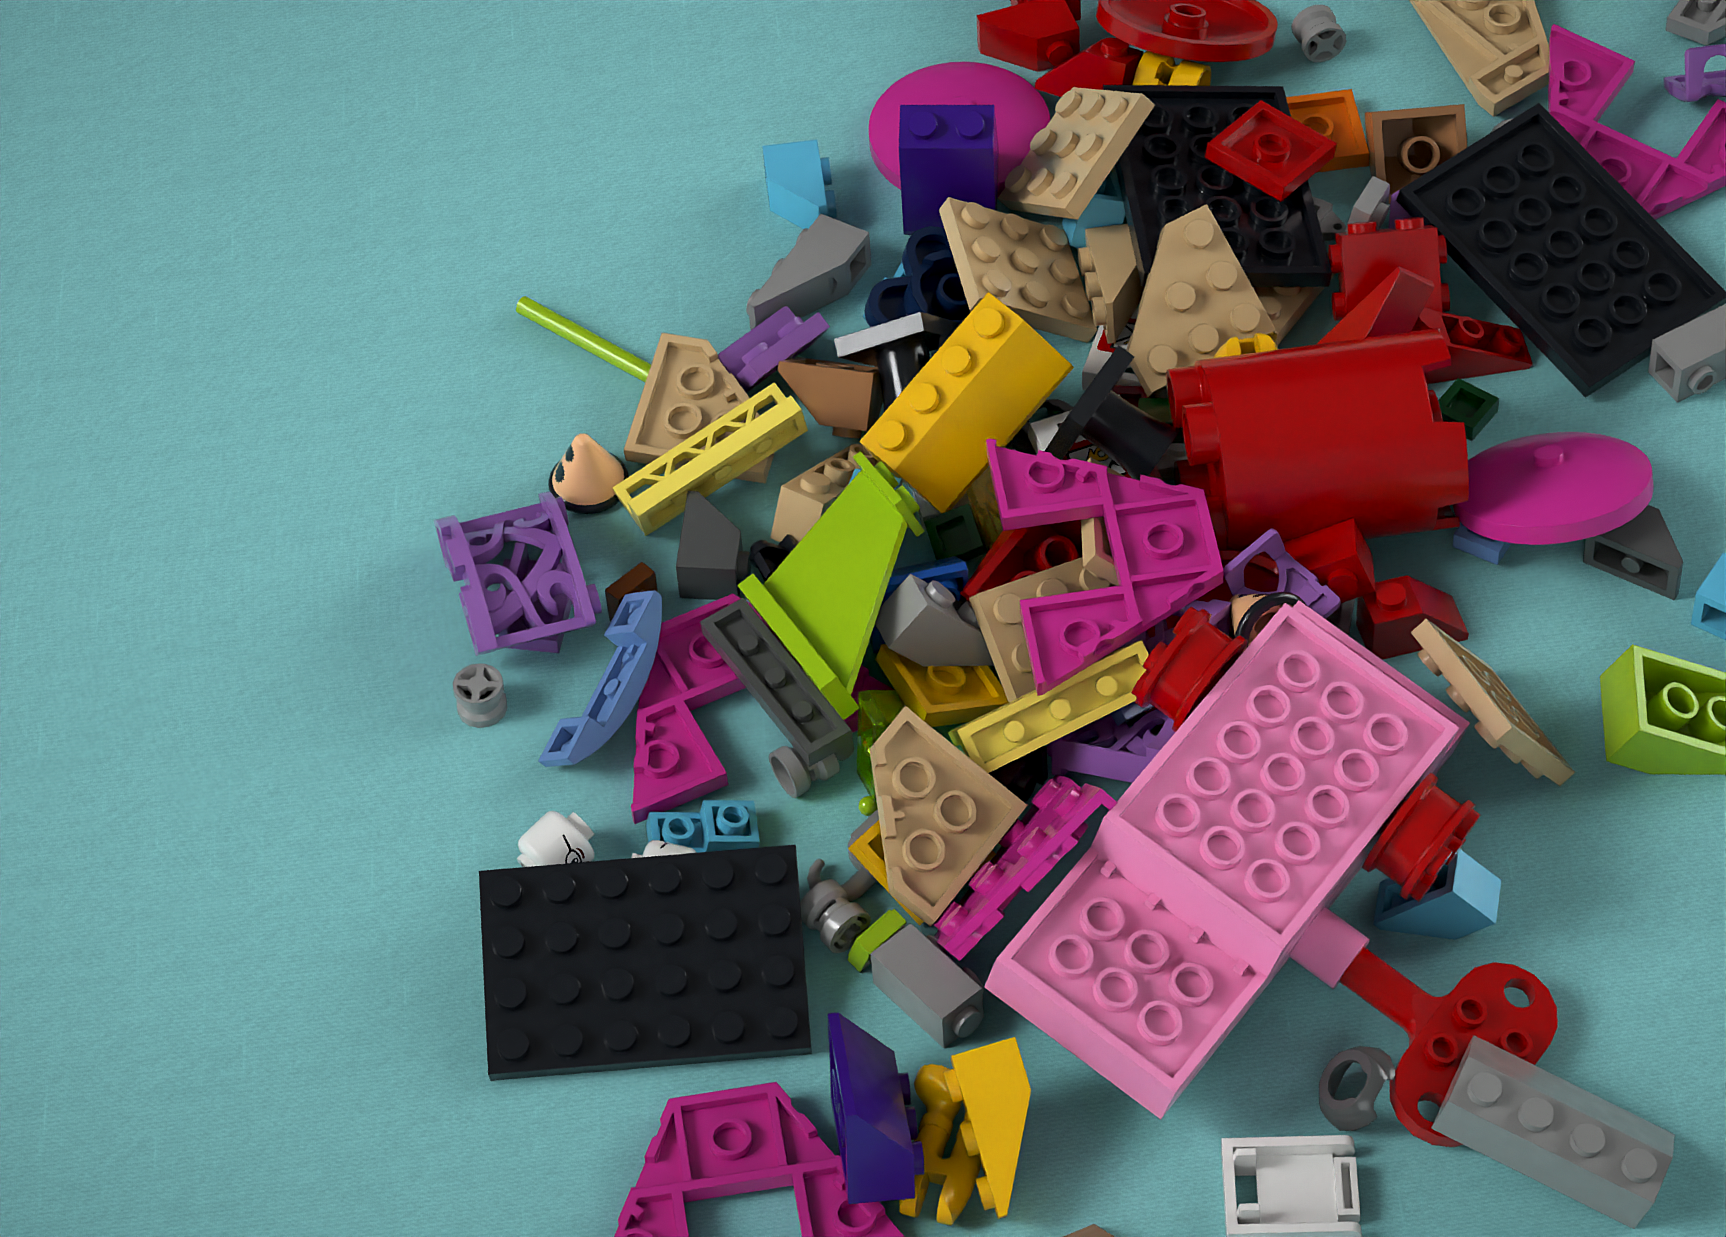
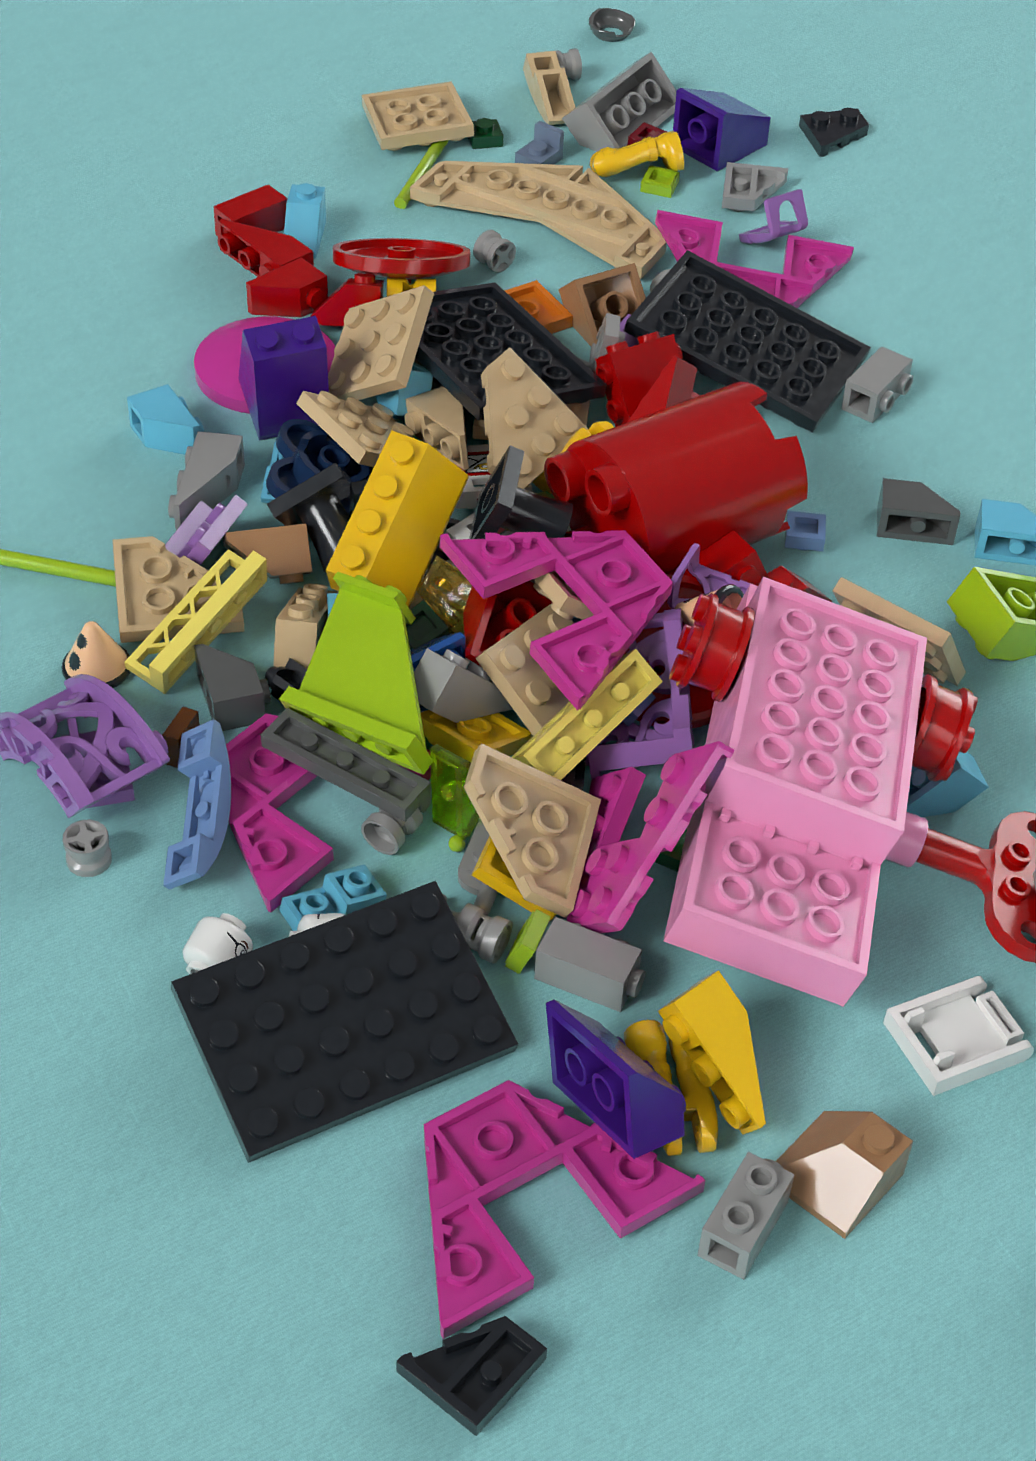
camera: 30 degrees left, 5 degrees down
(1270, 150) = (519, 316): red plate -> none
(1358, 1111) = (974, 956): dark grey piece -> none
(1555, 488) = (853, 486): dark pink dish -> none

